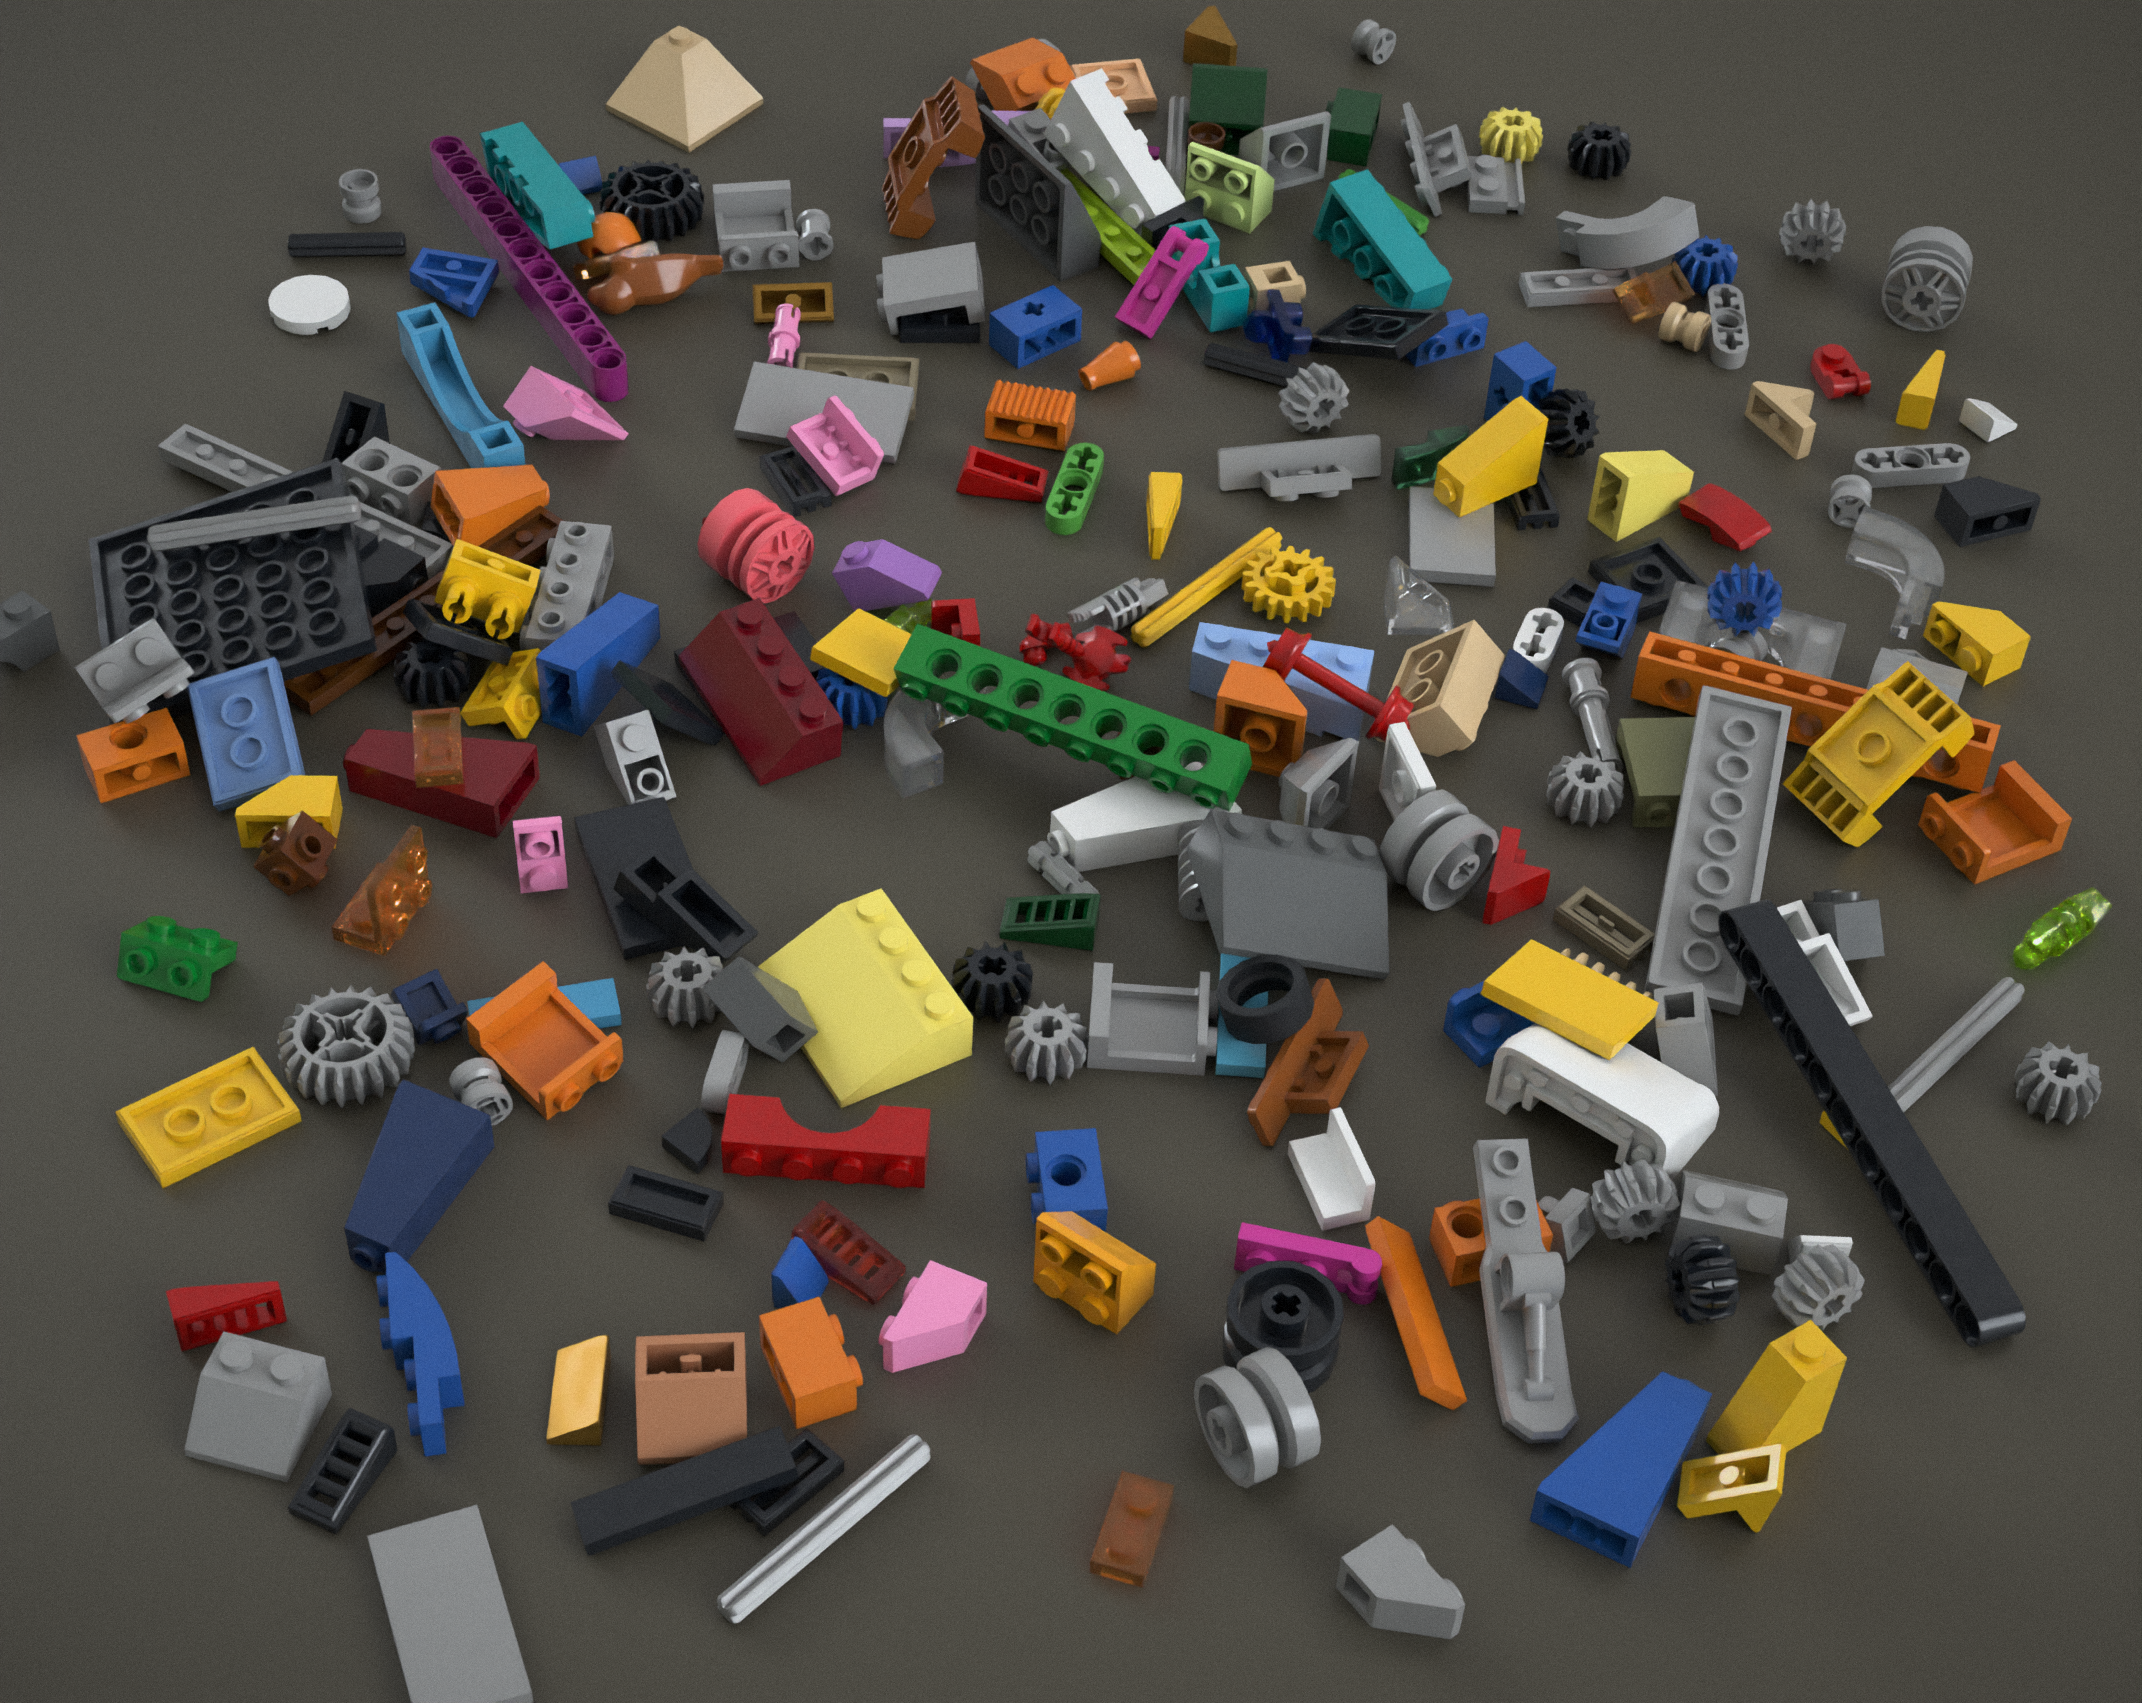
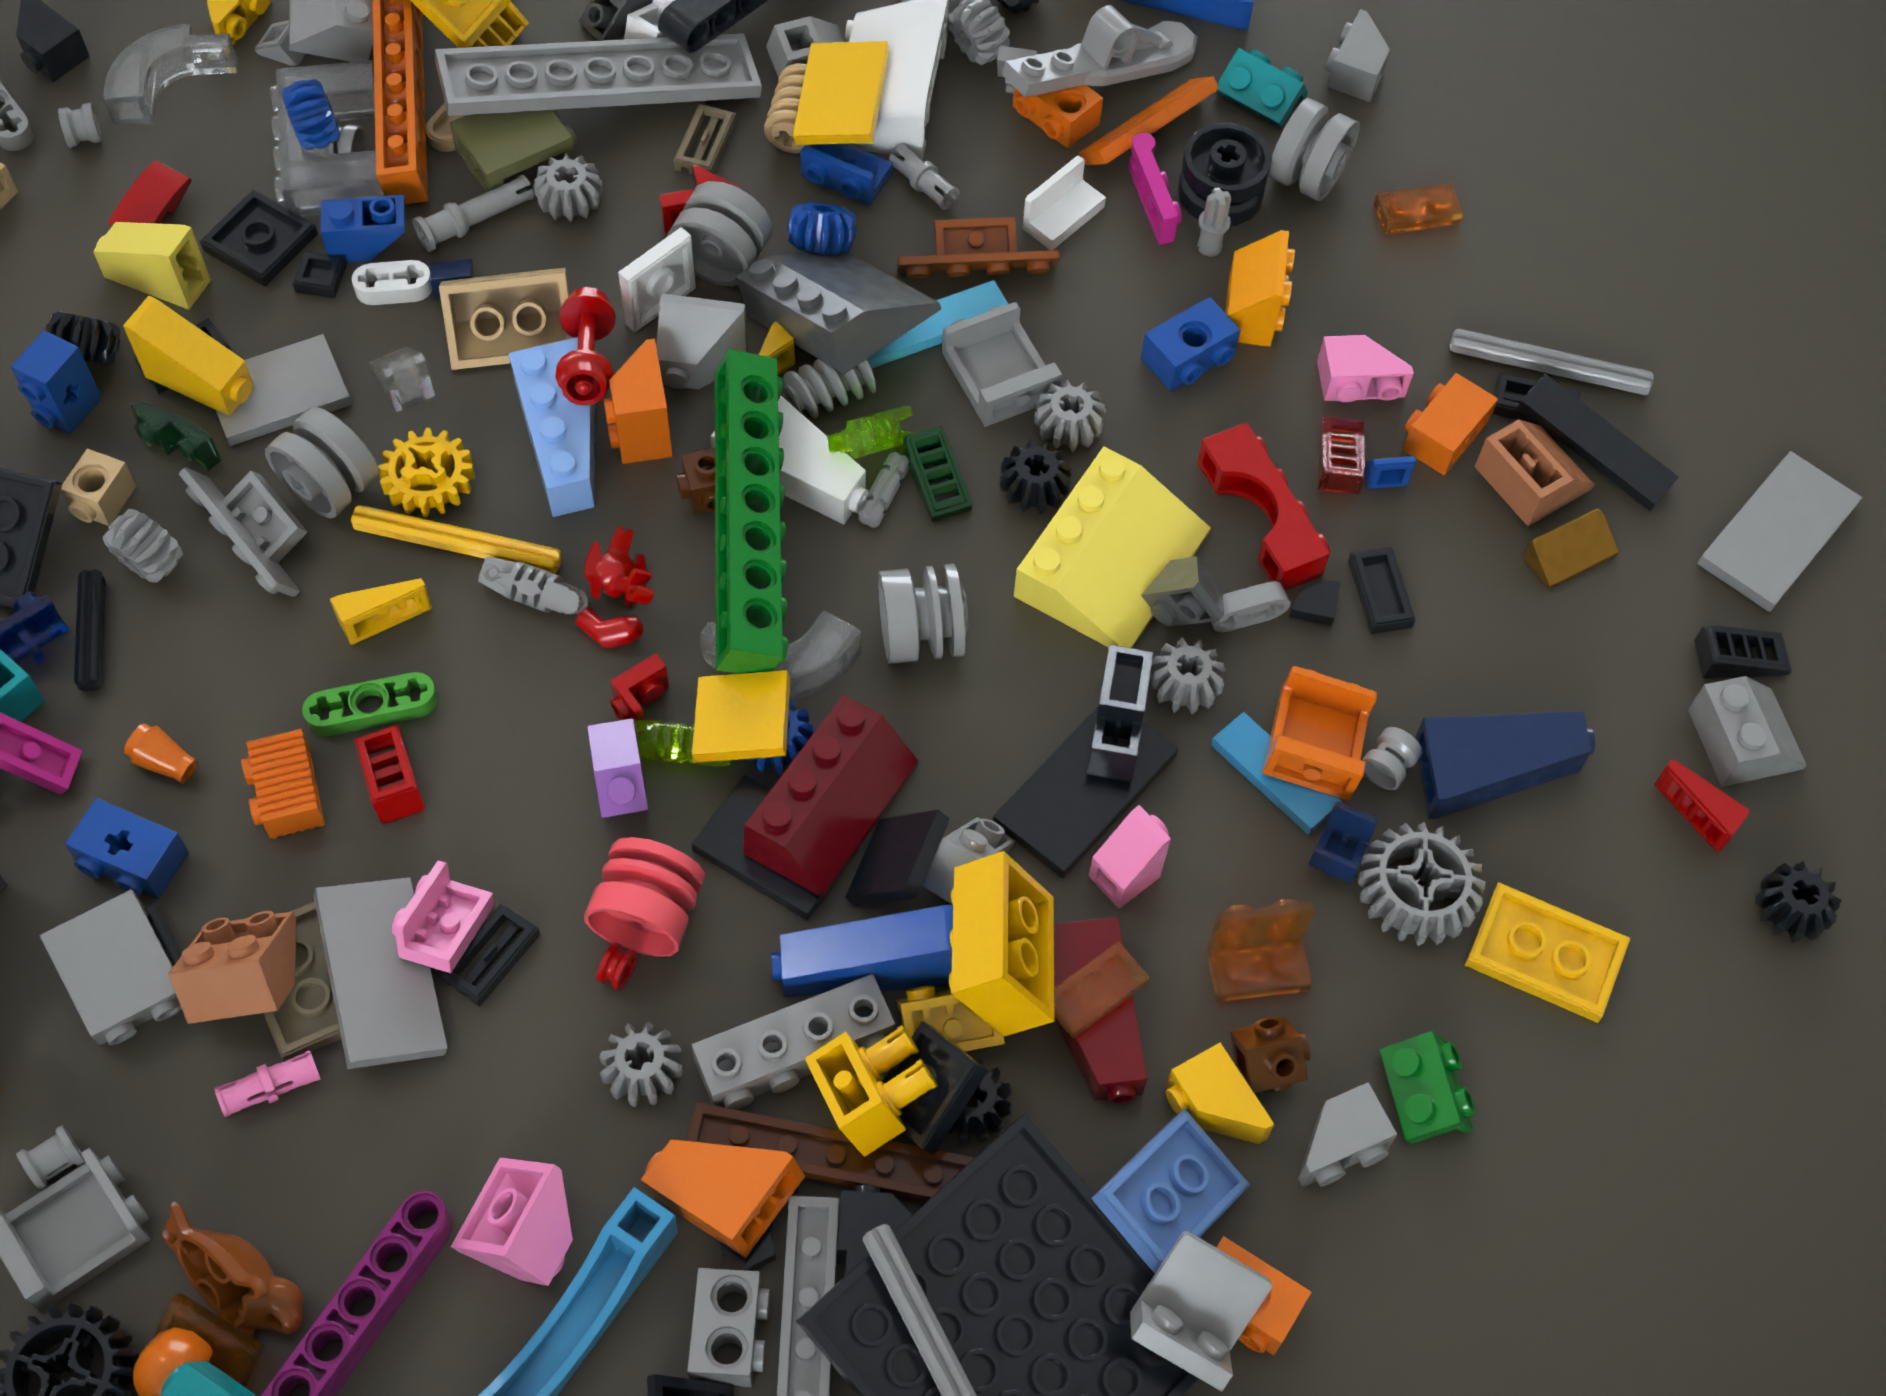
camera: 120 degrees left, 15 degrees up
(65, 1326) = (1798, 901): none -> black gear
(190, 876) = (1346, 1132): none -> light grey slope
(421, 1347) = (1627, 654): blue slope -> none
(514, 683) = (1002, 944): none -> yellow brick
(631, 510) = (653, 1075): none -> light grey gear
(812, 299) = (186, 1120): pearl gold slope -> none
(881, 335) = (237, 967): none -> nougat slope
(888, 810) = (922, 613): none -> light grey wheel
(1116, 868) = (871, 433): none -> clear neon green hinge
(1210, 1270) = (1214, 222): none -> light grey axle
(1272, 1021) = (958, 251): black tyre -> none
(1326, 506) = (322, 462): none -> light grey wheel
(1401, 401) = (97, 488): none -> tan brick
(1408, 942) = (821, 228): none -> blue gear
(1412, 1463) = (1261, 87): none -> teal bracket
(1443, 1073) = (924, 177): none -> light grey pin

